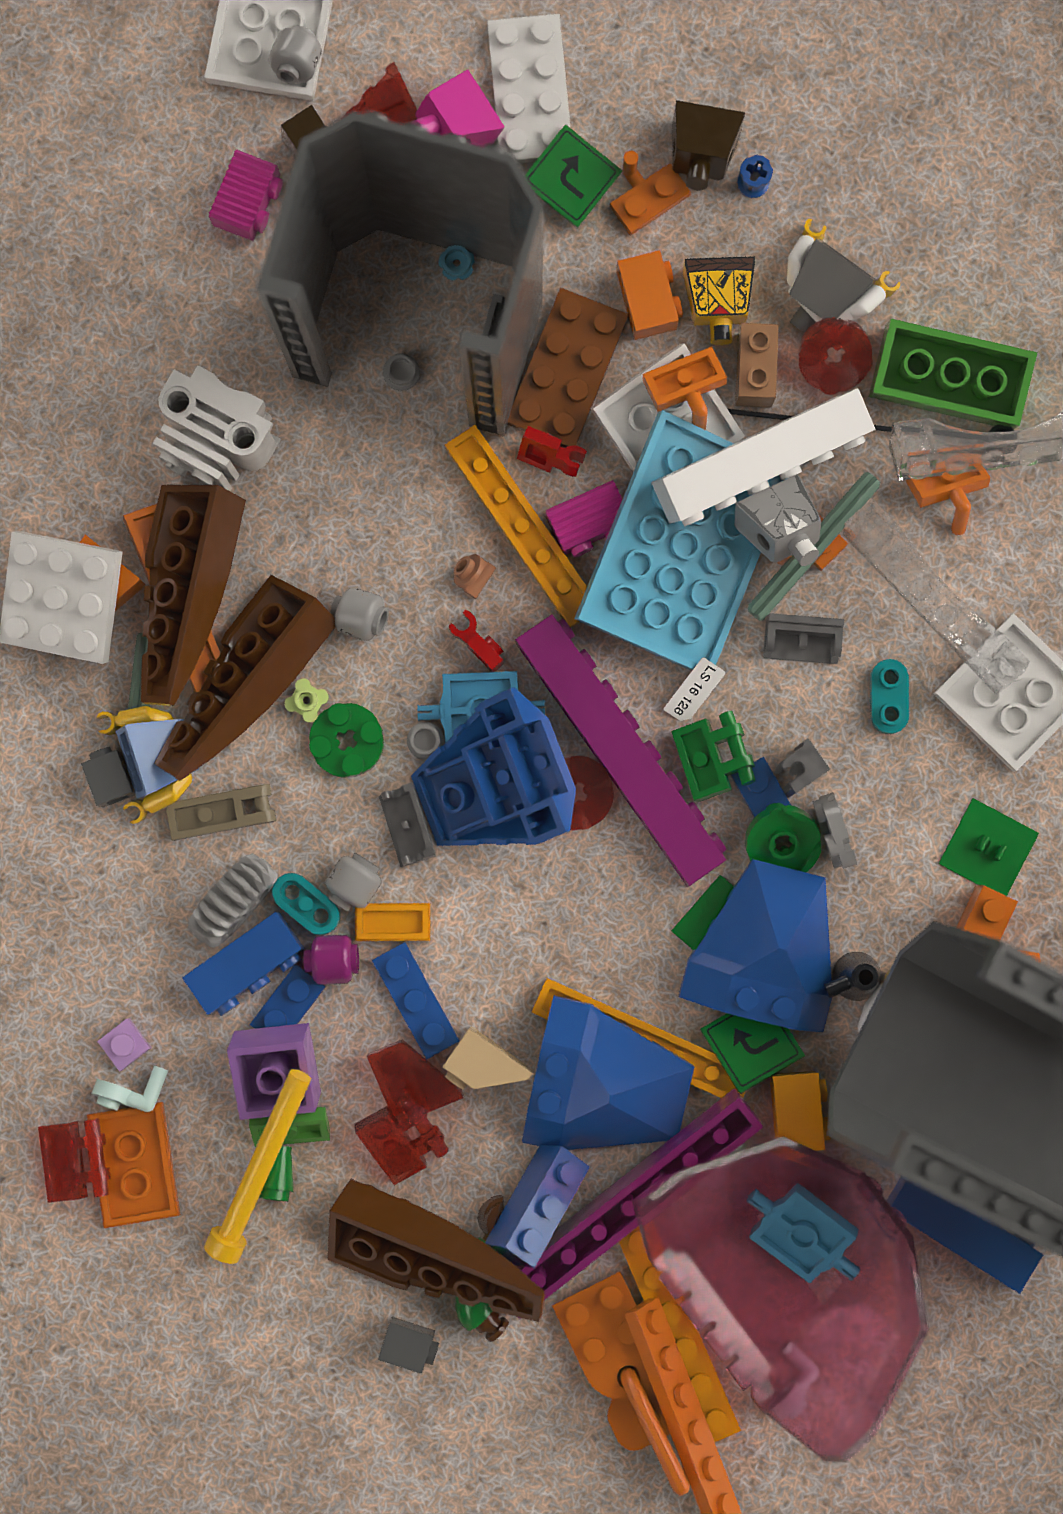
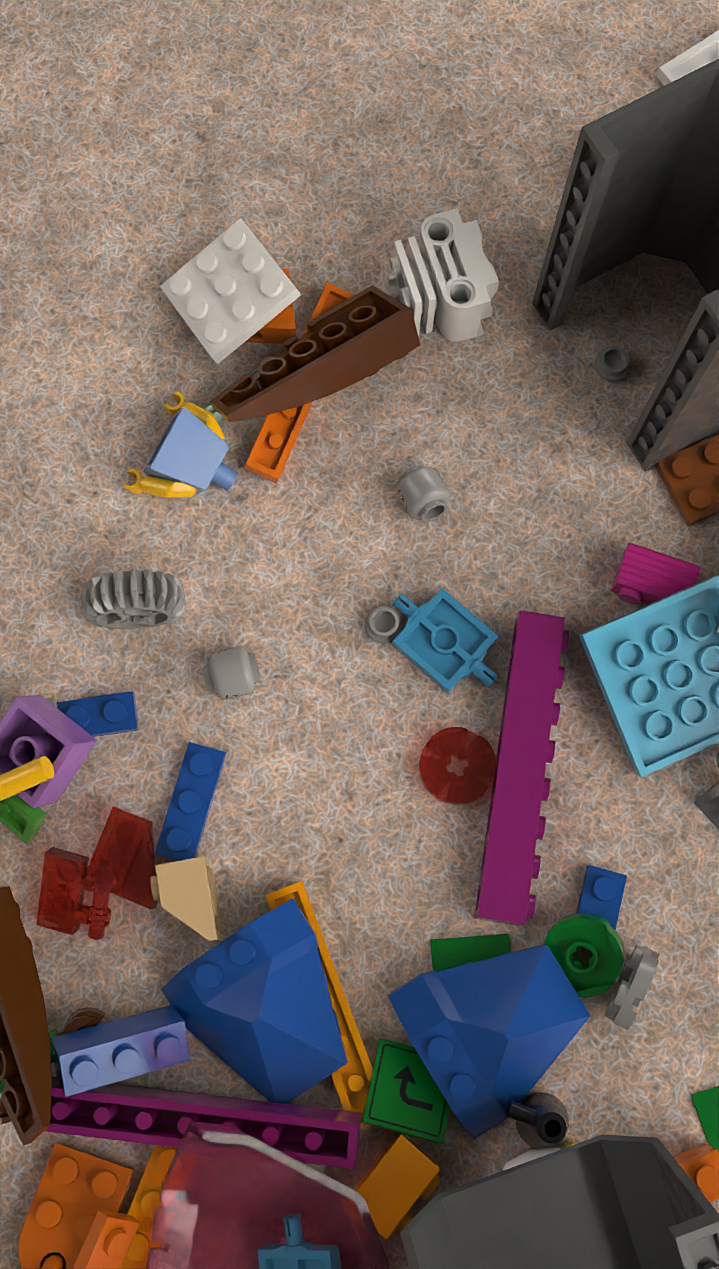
camera: 40 degrees right, 10 degrees down
(108, 777) = (137, 439): dark grey brick -> none
(219, 812) = (189, 536): dark tan plate -> none
(244, 965) = (96, 656): blue brick -> none
(258, 663) = (324, 458): reddish brown wedge -> none
(306, 904) = (183, 658): teal plate -> none
(310, 710) = (323, 527): yellowish green plate -> none
(332, 959) = (161, 713): magenta head -> none
(367, 734) = (316, 589): green plate -> none
(393, 922) = (232, 730): light orange tile -> none
(407, 825) = (312, 670): flat silver hinge -> none
(472, 574) = (531, 542): nougat plate -> none
(484, 649) = (489, 600): red plate -> none
(498, 778) = (412, 695): blue wedge -> none
(518, 522) = (600, 536): light orange plate -> none
(544, 452) = (665, 506): red plate -> none
(694, 690) = (619, 775): white sticker -> none
(702, 760) = (576, 834): green plate -> none
(805, 763) = (656, 911): flat silver hinge -> none

